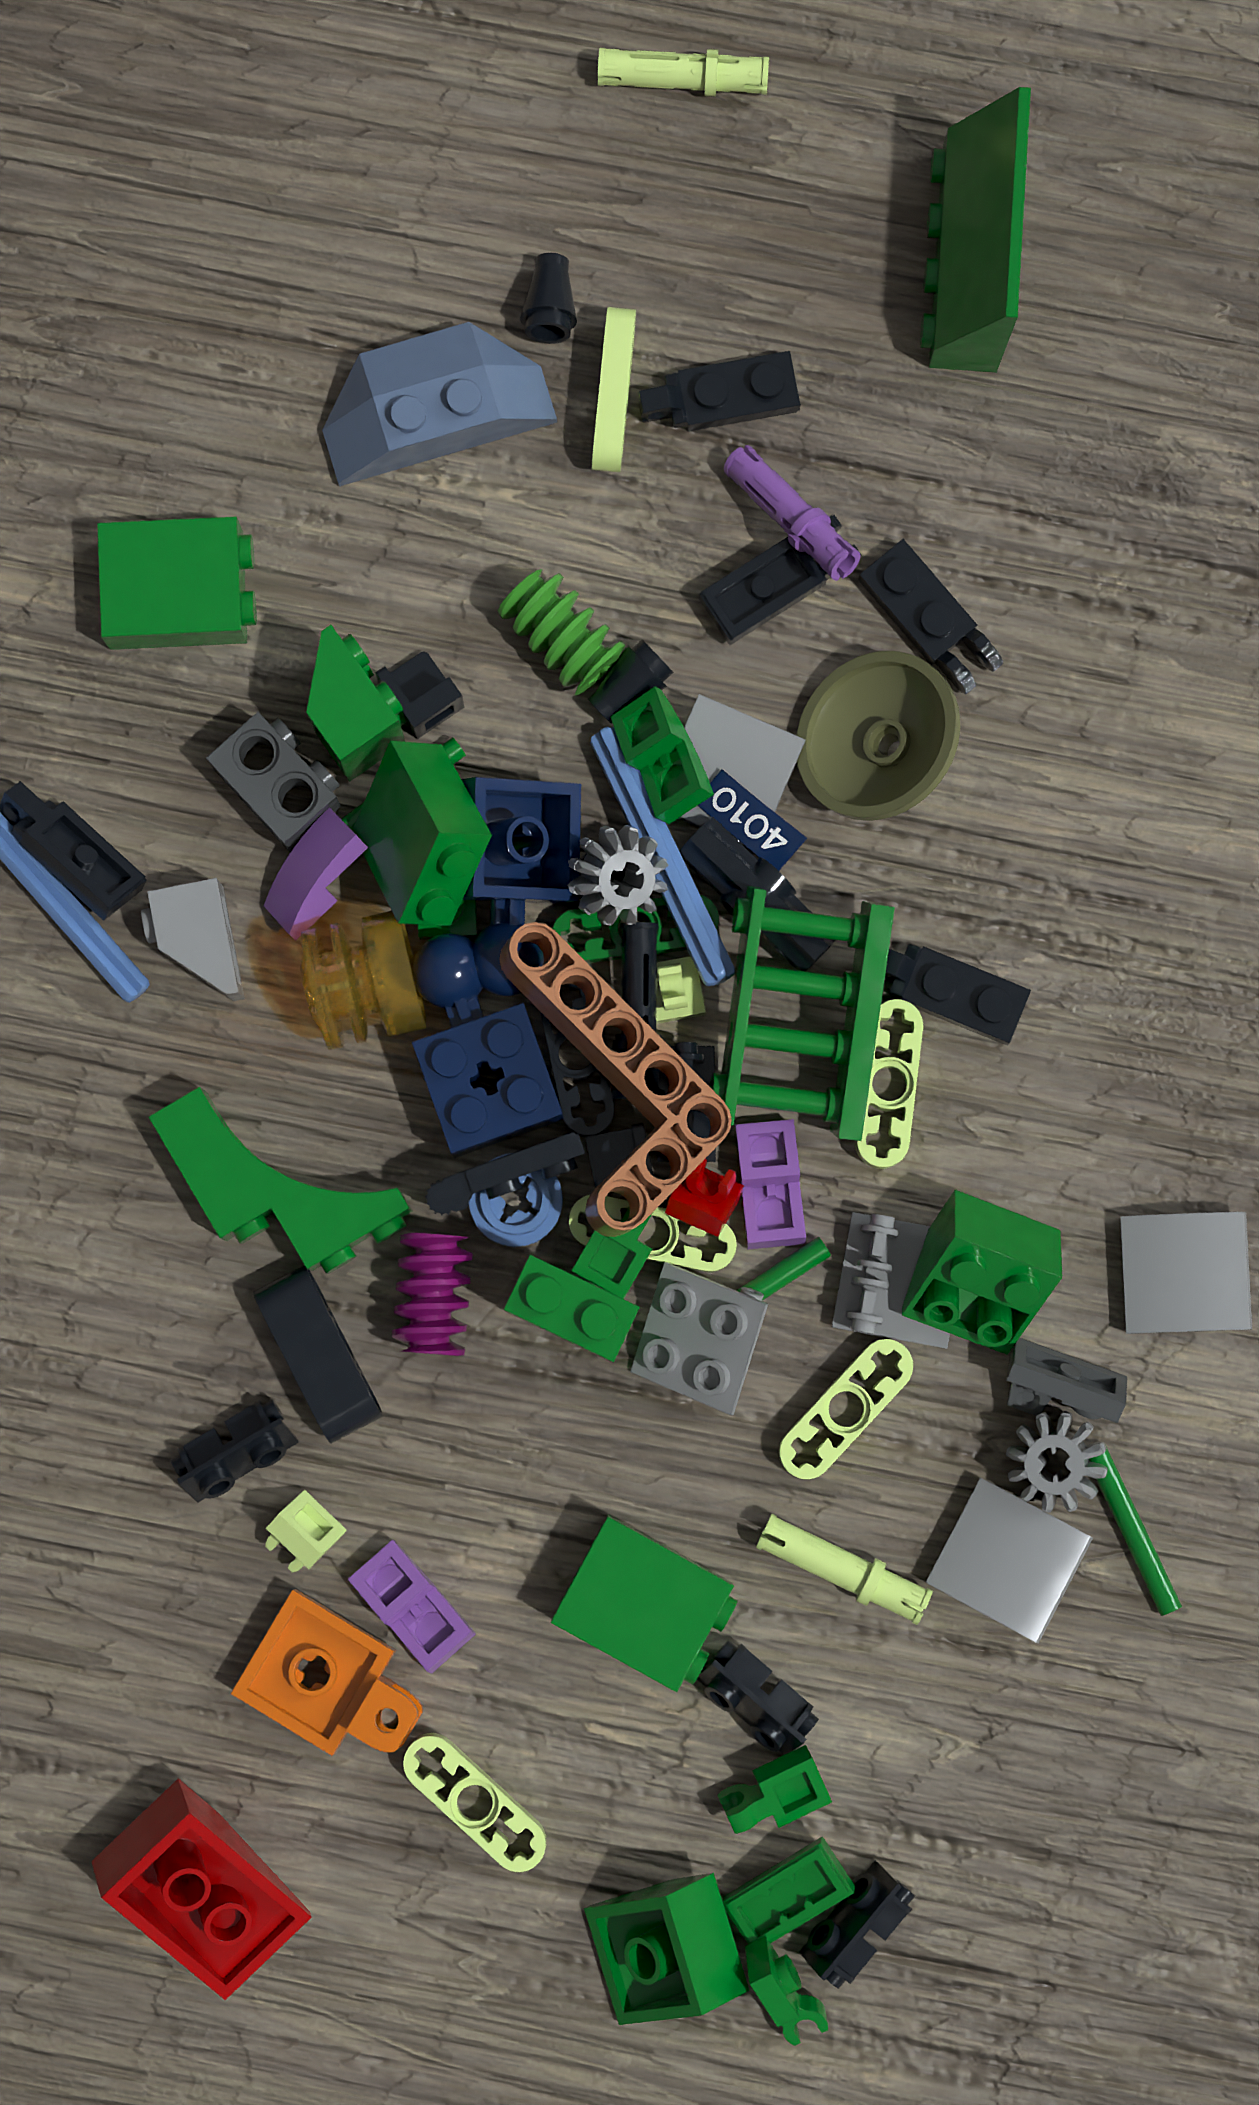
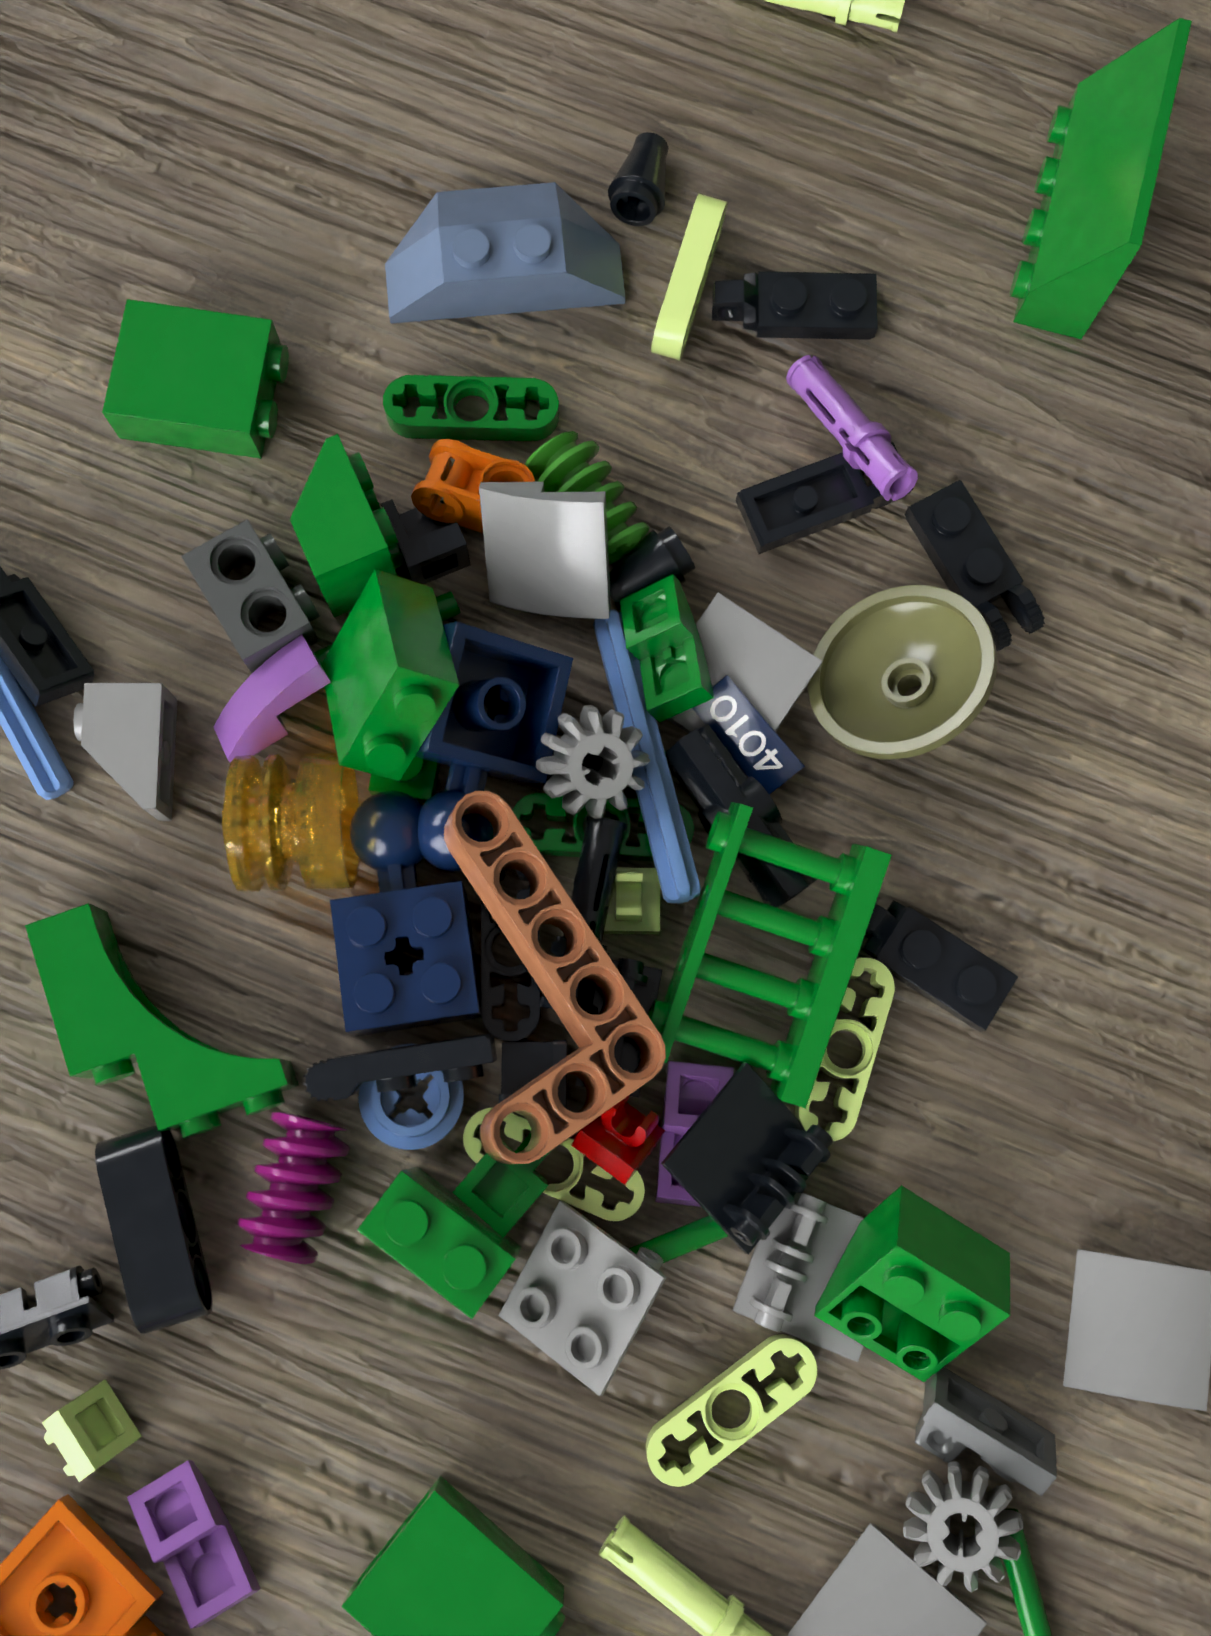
camera: 10 degrees right, 5 degrees down
(395, 579) = (454, 388): none -> green beam
(454, 638) = (461, 482): none -> orange piece
(535, 687) = (546, 549): none -> light grey slope
(819, 1193) = (746, 1158): none -> black hinge

